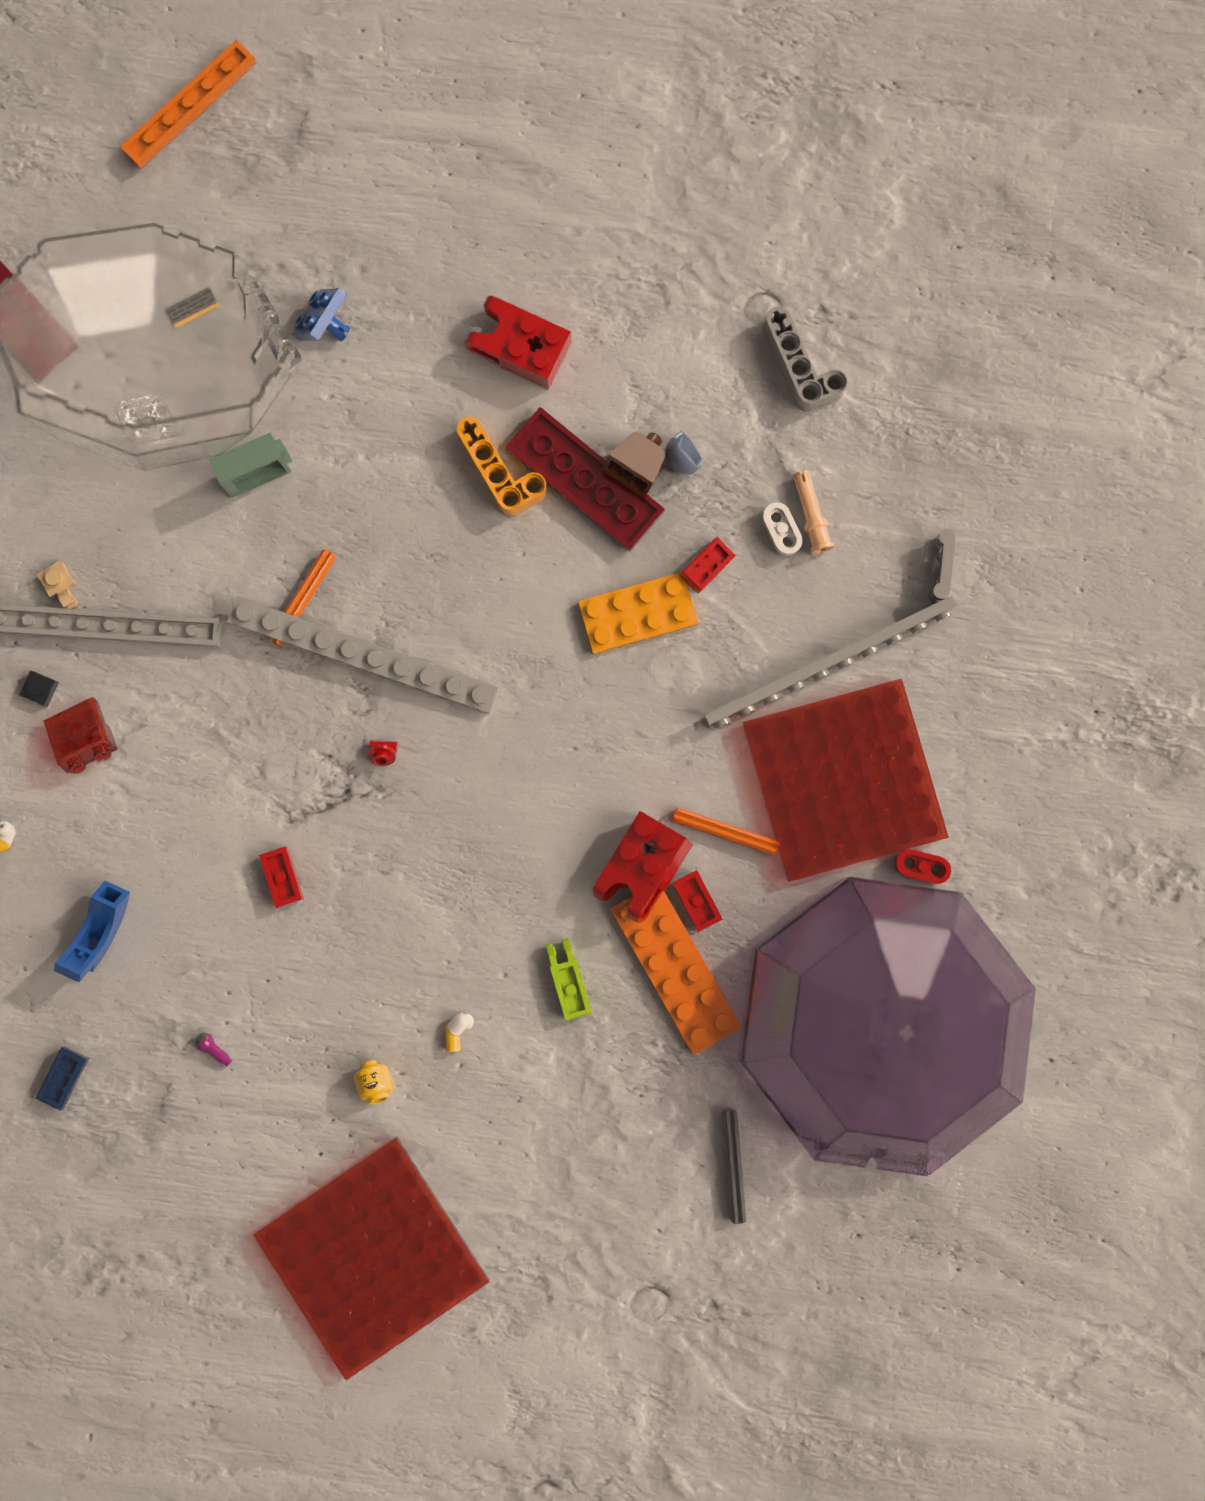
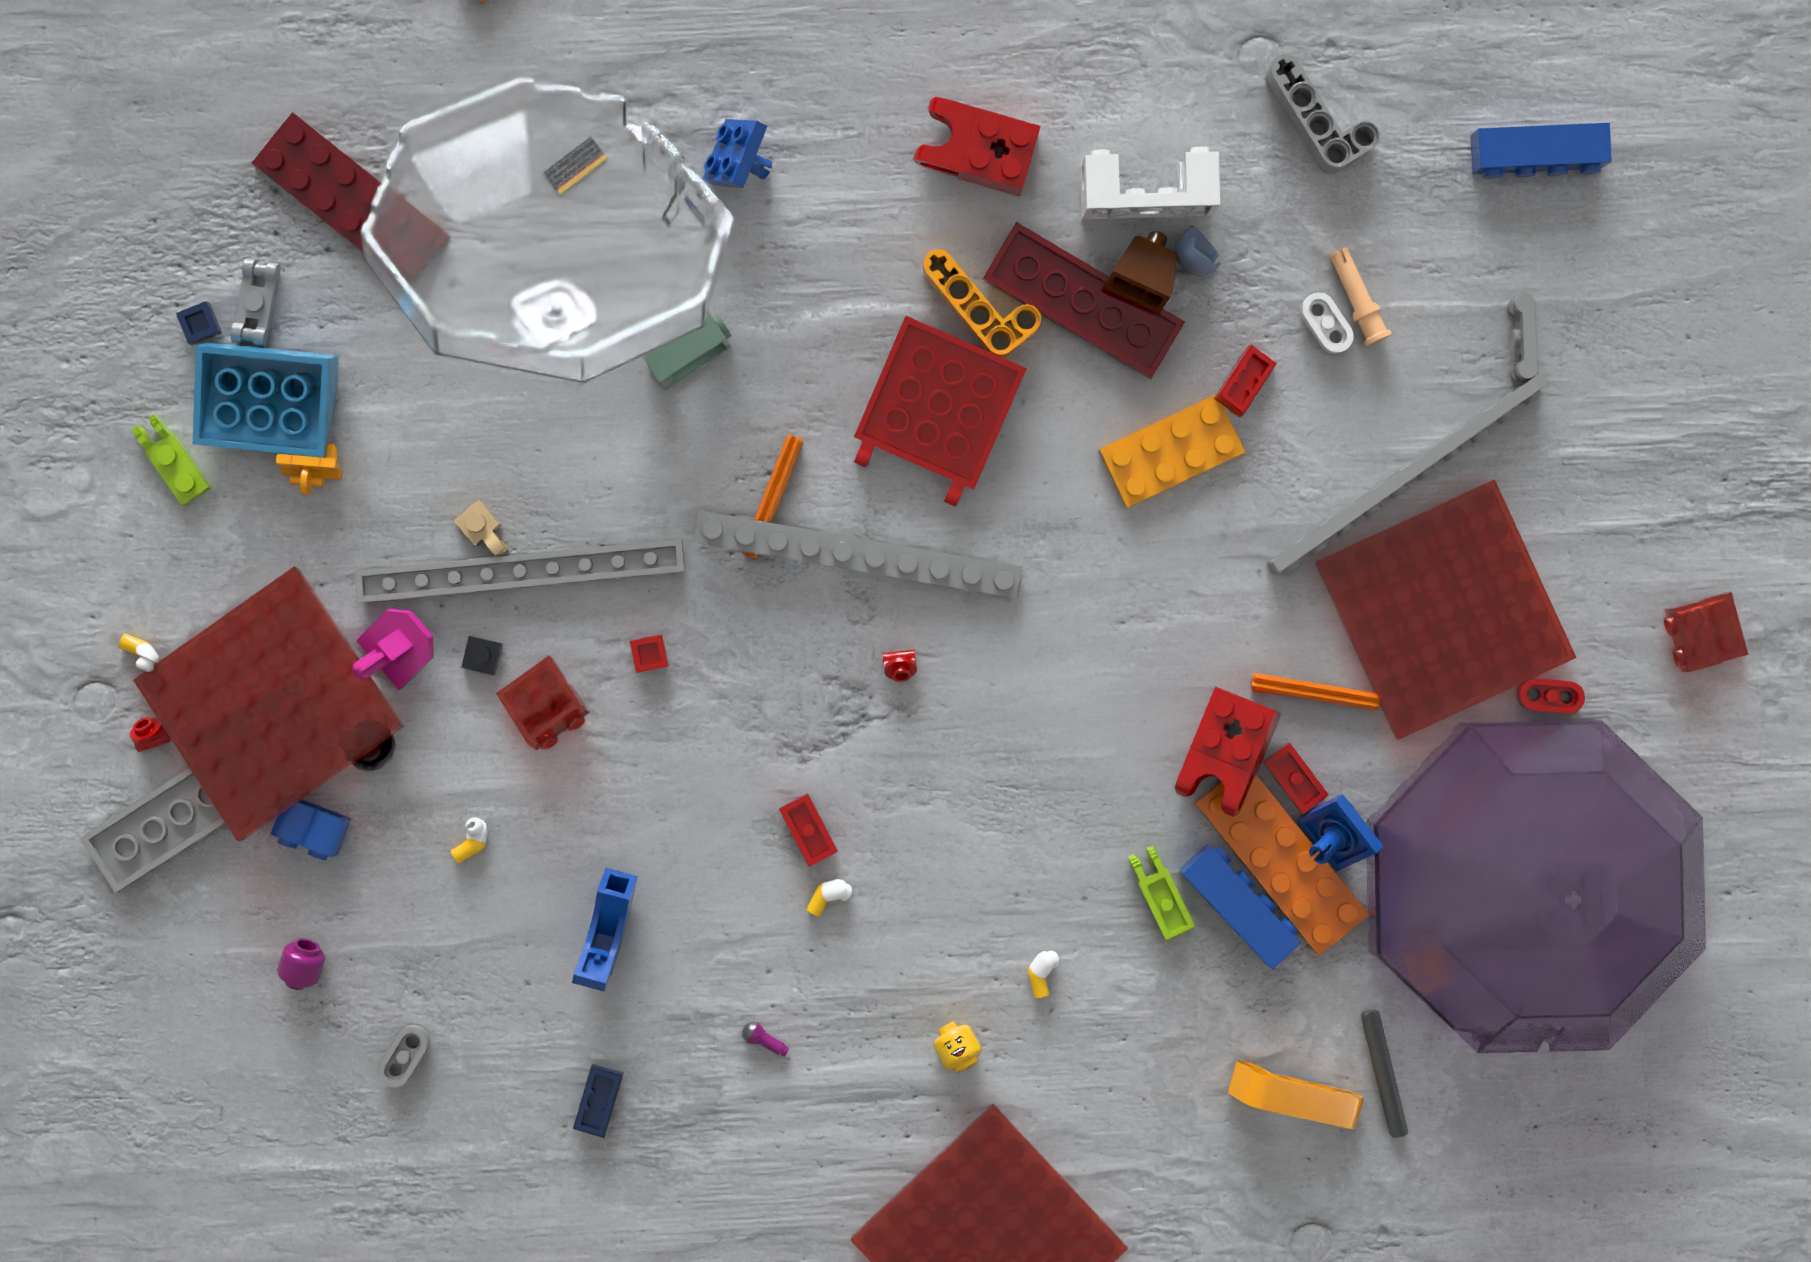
camera: 10 degrees left, 5 degrees up
(176, 708) = (649, 653): none -> red plate
(288, 932) = (827, 892): none -> arm
(450, 543) = (939, 404): none -> red plate
(615, 403) = (1195, 197): none -> white plate
(633, 1002) = (1239, 906): none -> blue brick
(653, 1173) = (1294, 1096): none -> light orange beam
(724, 952) = (1338, 834): none -> blue plate
(979, 417) = (1541, 149): none -> blue brick
(1061, 834) = (1705, 632): none -> clear red plate

